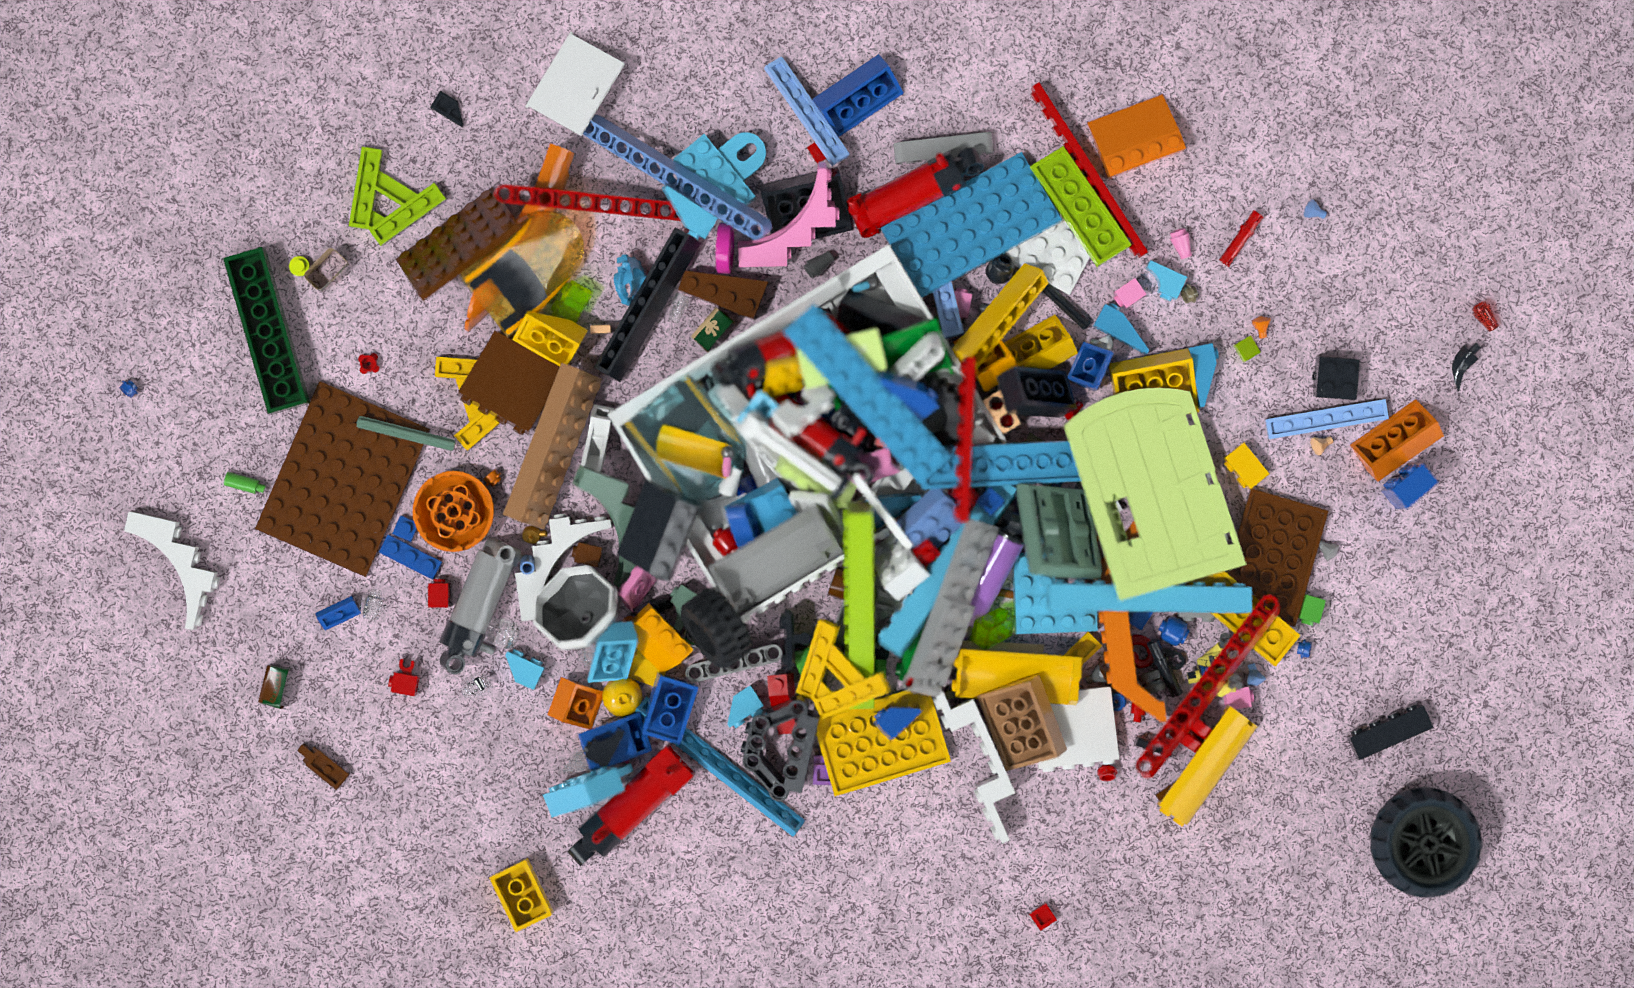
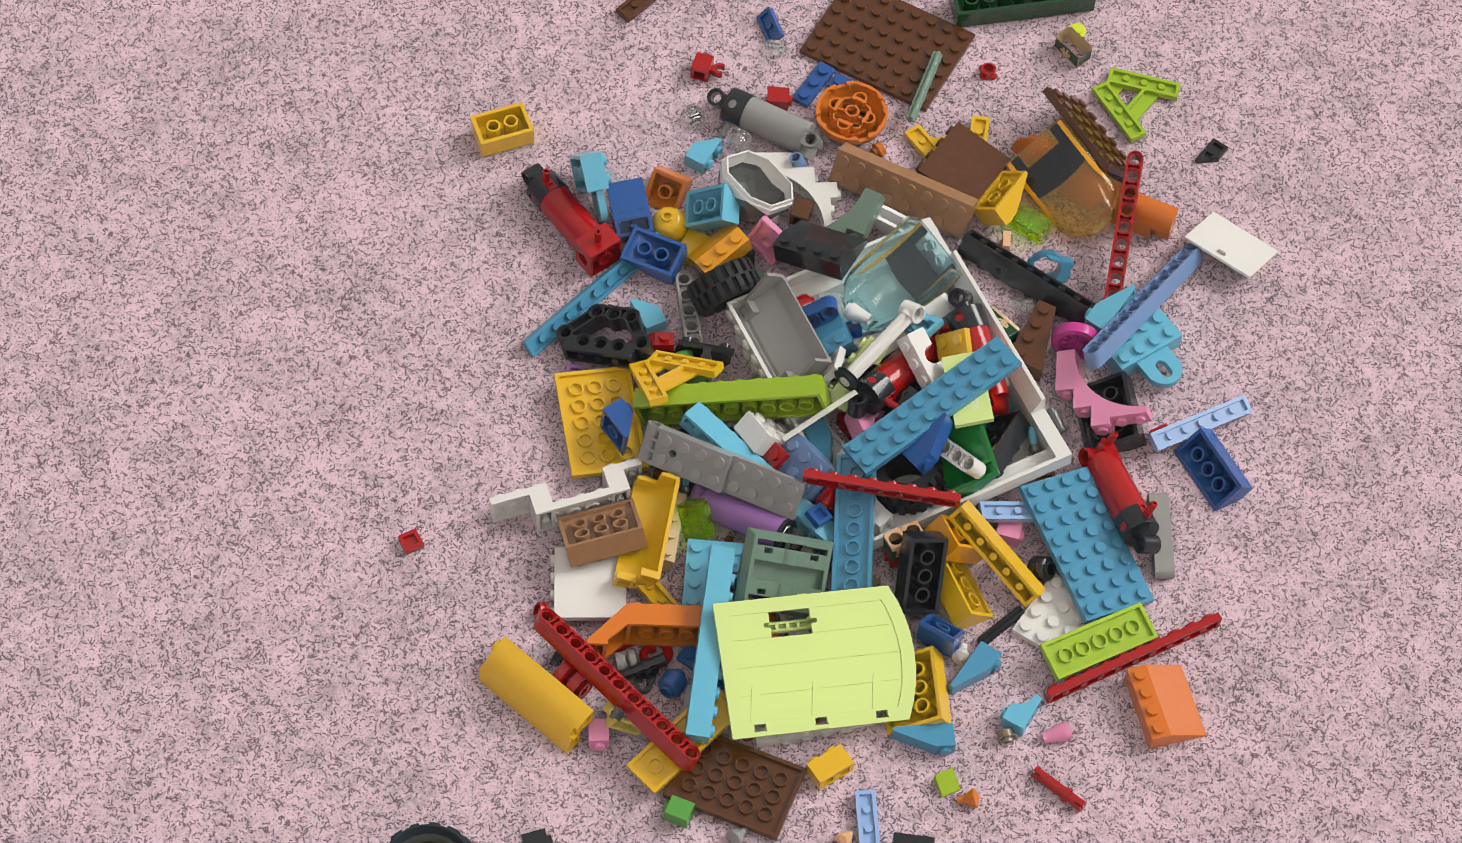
camera: 95 degrees right, 30 degrees down
(533, 534) = (823, 173): pearl gold piece -> none
(602, 750) = (623, 190): black arch -> none
(690, 450) = (889, 282): yellow sticker -> none
(727, 454) = (884, 312): piece -> none
(1128, 294) = (1009, 680): bright pink brick -> none
(1254, 677) = (617, 754): medium blue rock -> none
(1304, 649) = (639, 803): blue plate -> none

